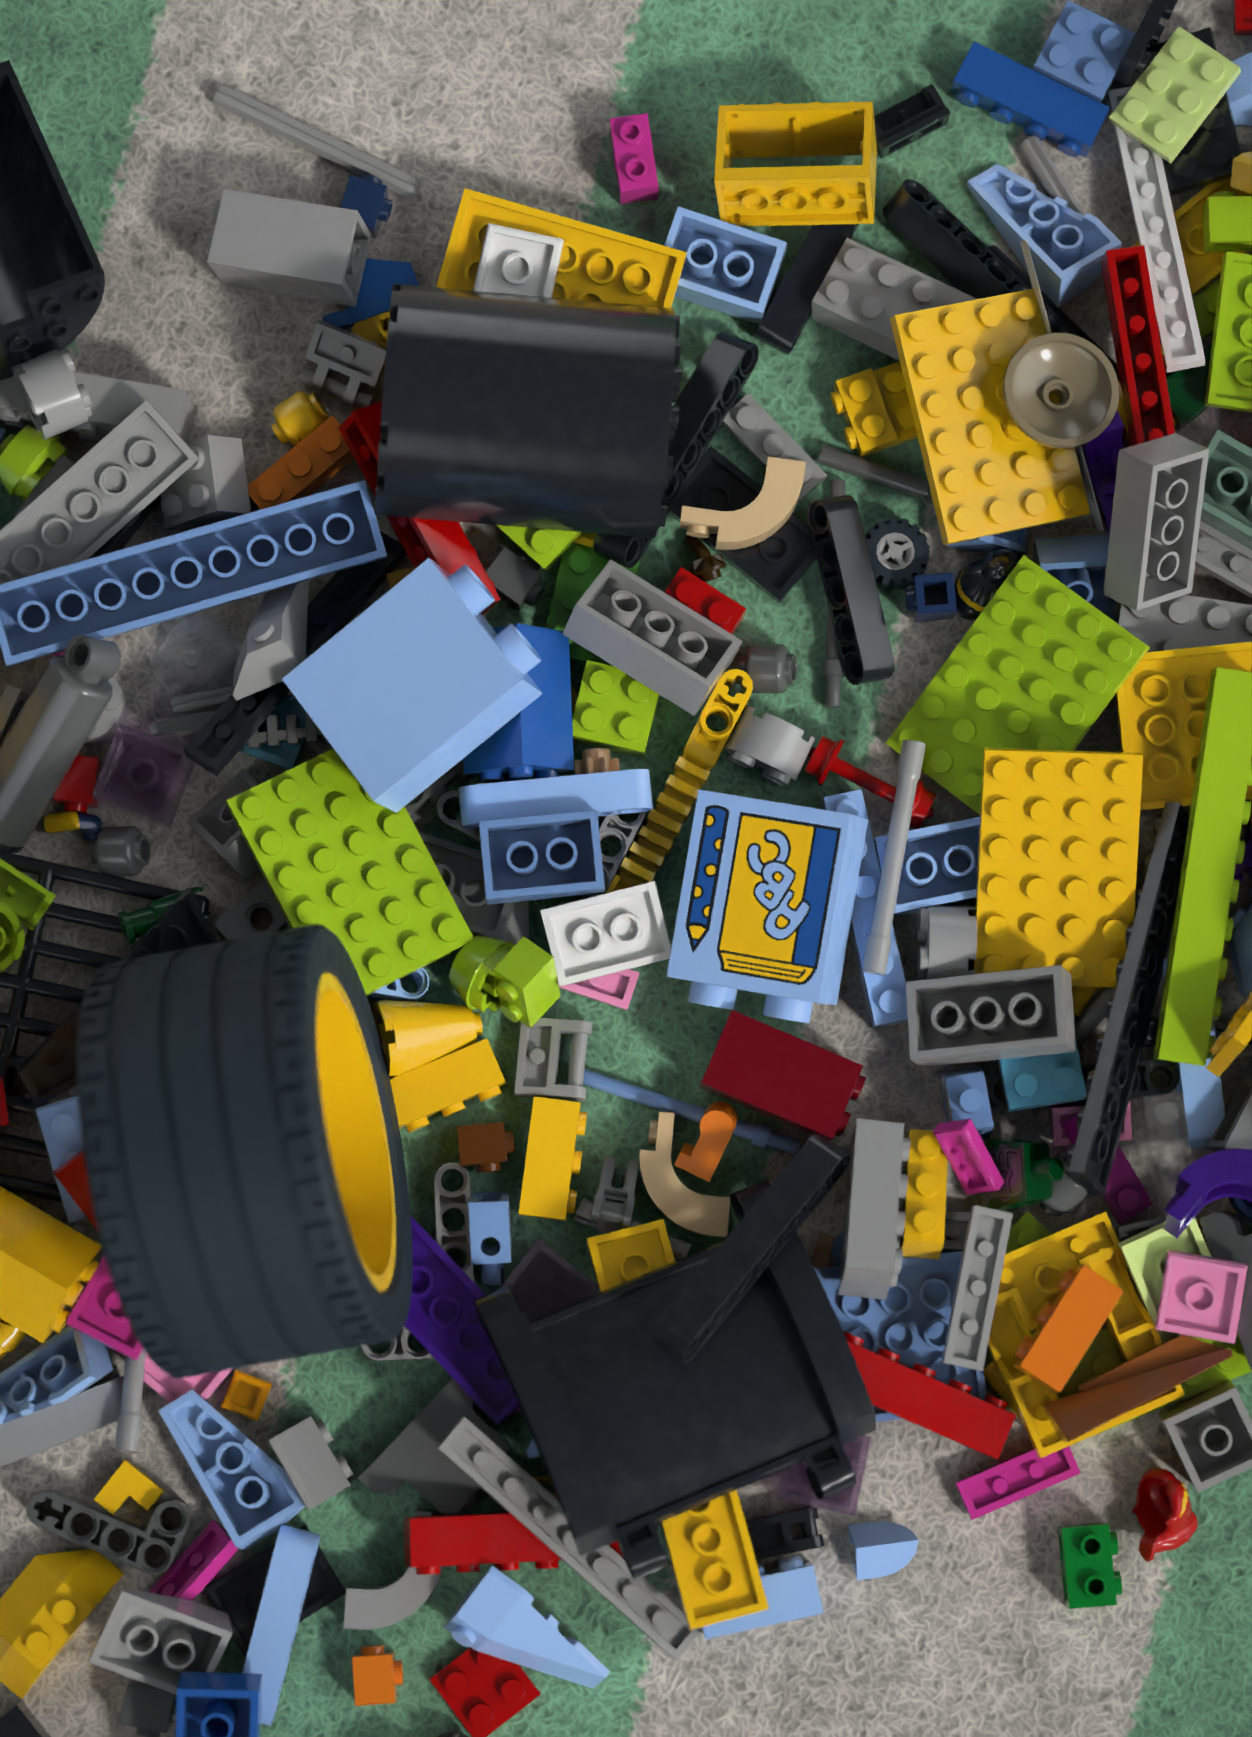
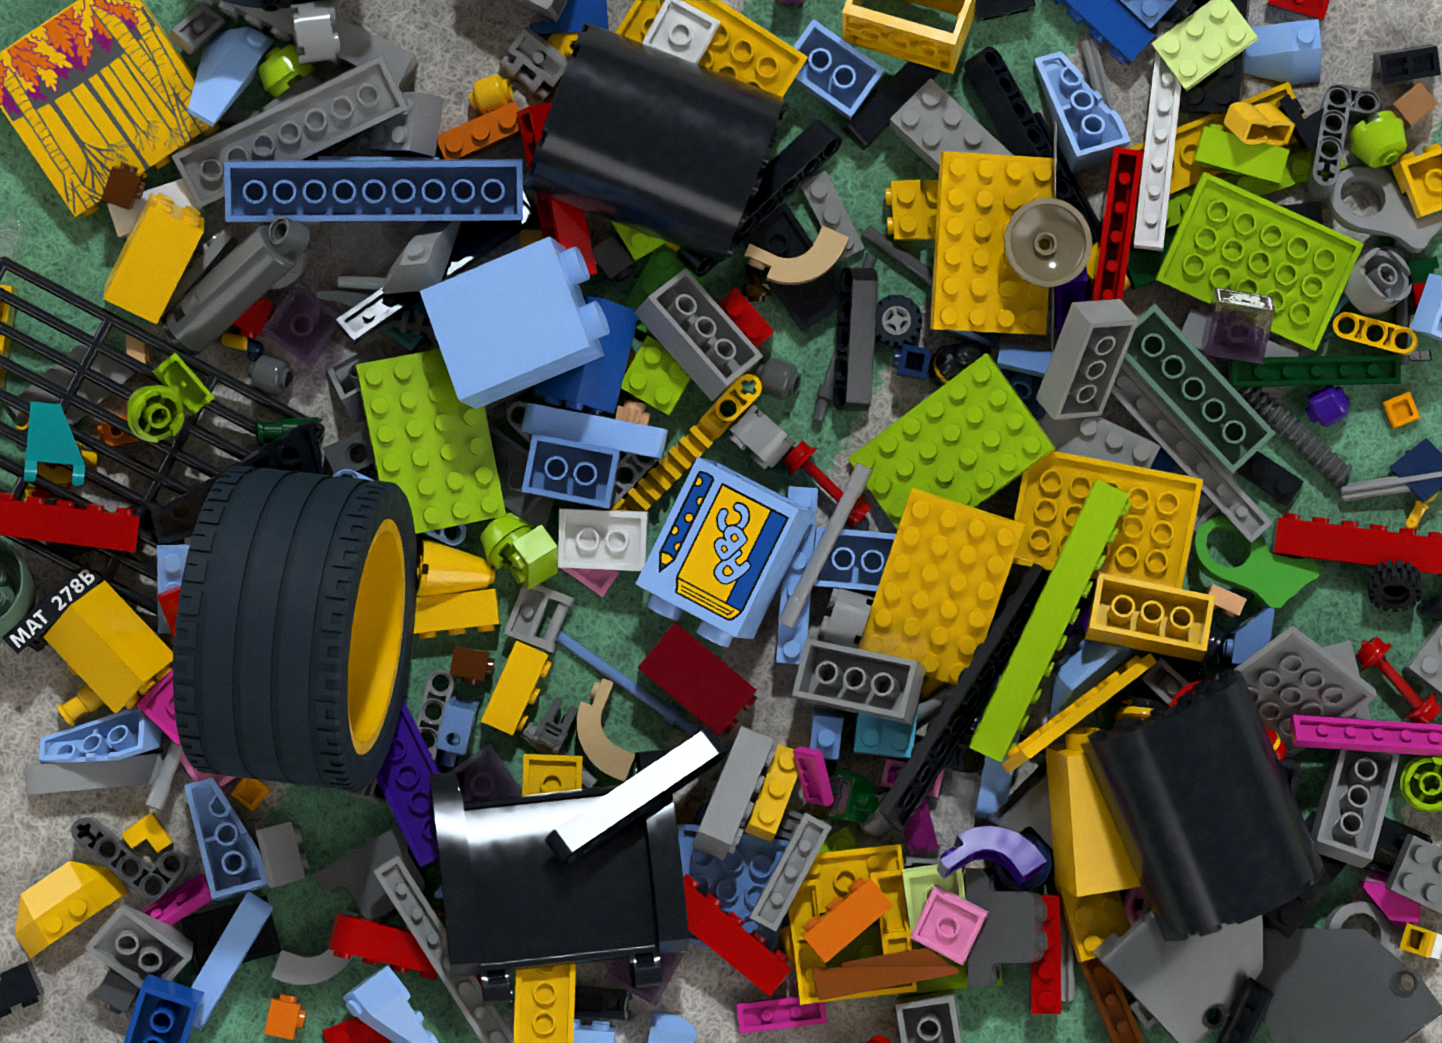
camera: 20 degrees right, 5 degrees up
(716, 1130) = (638, 705): orange leg -> none

